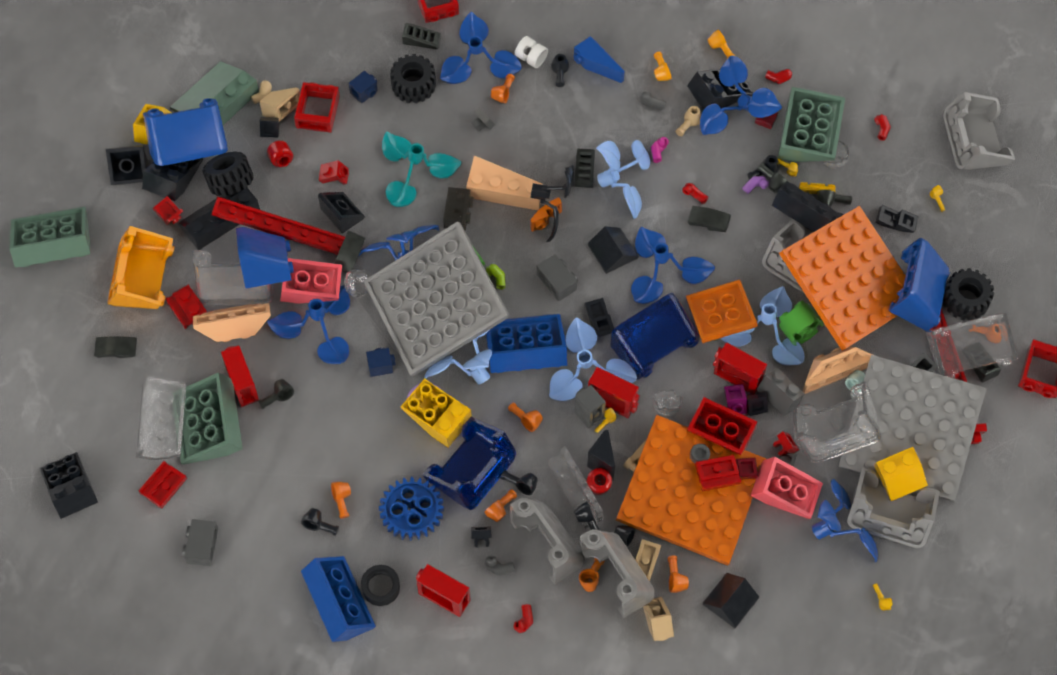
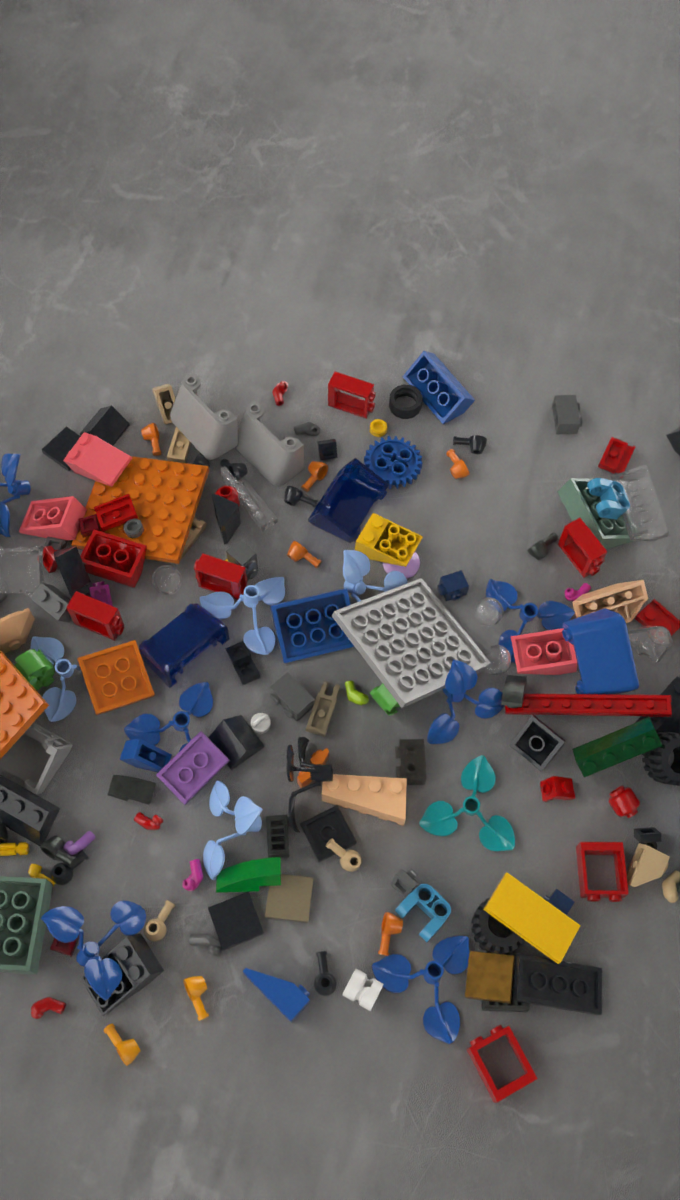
camera: 170 degrees right, 0 degrees up
(189, 418) = (613, 497): none -> dark azure piece
(256, 341) = (572, 595): none -> dark pink arm
(274, 182) = (616, 747): none -> dark green brick
(350, 334) = (489, 611): none -> clear hair
(378, 36) = (558, 985): none -> black tile
(388, 70) = (532, 918): none -> yellow tile
(418, 559) = (378, 427): none -> yellow tile
(431, 46) = (489, 977): none -> pearl gold tile
(467, 101) = (427, 907): none -> dark azure piece
(525, 143) = (345, 856): none -> tan bar
(528, 264) = (322, 710): none -> dark tan hinge
(541, 165) = (323, 828): none -> black tile
(580, 124) = (290, 899): none -> dark tan tile
(588, 262) = (260, 723): none -> white tile
(622, 138) = (250, 875): none -> green slope
(626, 114) = (235, 921): none -> black tile
(653, 227) = (192, 767): none -> medium lavender tile
(696, 242) = (144, 755): none -> blue slope
(737, 542) = (97, 459): none -> coral slope
(766, 411) = (71, 568): none -> black slope
(773, 578) = (60, 446): none -> black tile

